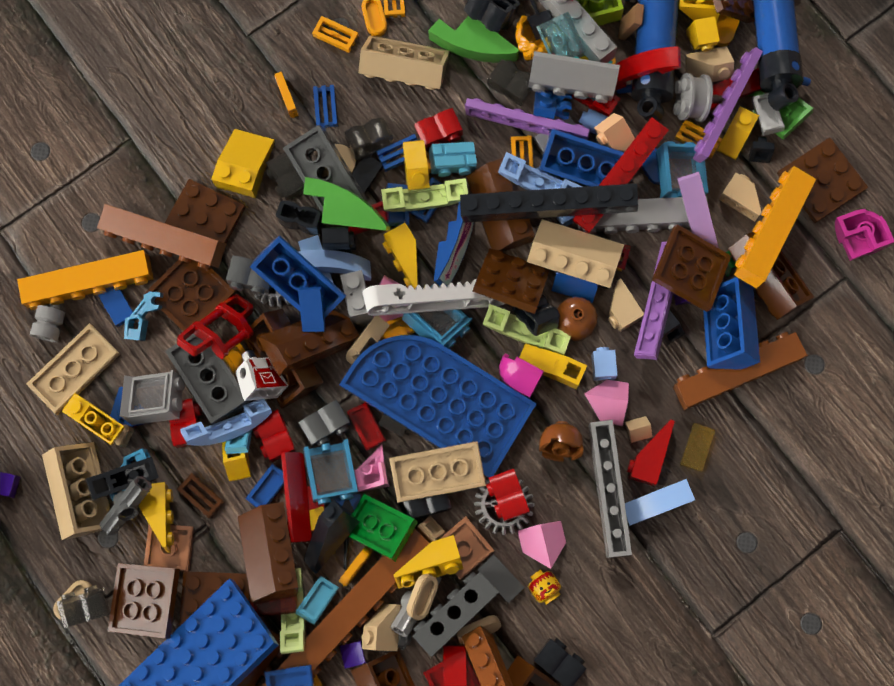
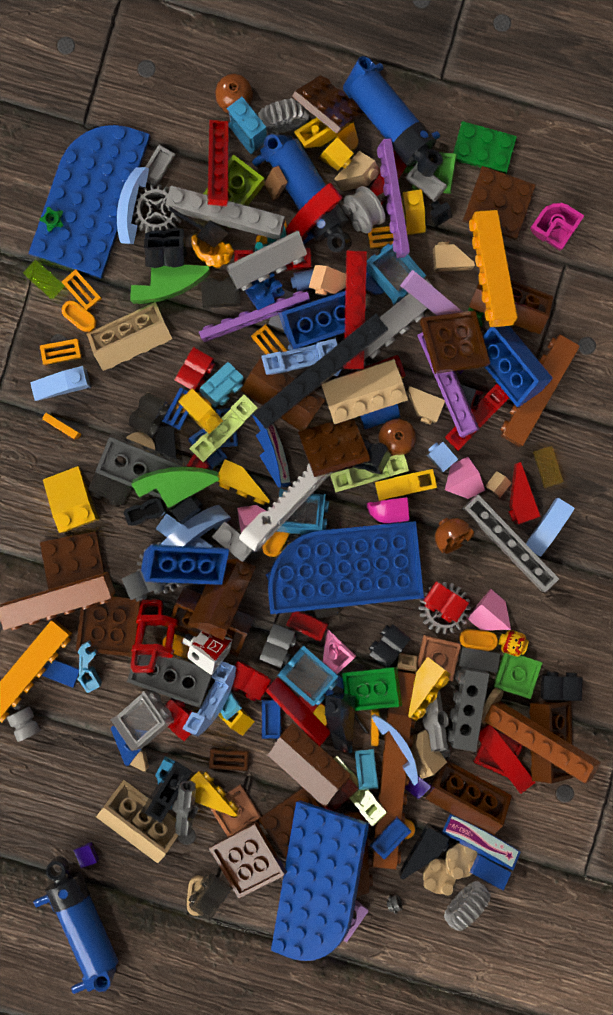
camera: 45 degrees left, 10 degrees up
(73, 368) = (67, 740): tan tile -> none
(93, 418) = (113, 765): yellow slope -> none
(311, 309) = (211, 576): blue tile -> none
(315, 59) = (61, 383): none -> light blue slope
(323, 89) = (86, 401): blue tile -> none
(358, 627) = (409, 767): none -> light blue slope
(369, 336) = (264, 558): tan slope -> none
(422, 596) = (439, 715): tan tile -> none
(437, 471) = (383, 621): tan tile -> none
(514, 559) = (478, 639): none -> light orange tile
(526, 620) = (517, 675): none -> bright green plate
(561, 36) = (237, 238): clear light blue plate -> none
(677, 352) = (487, 407): none -> red slope
(844, 123) = (484, 147): none -> green plate

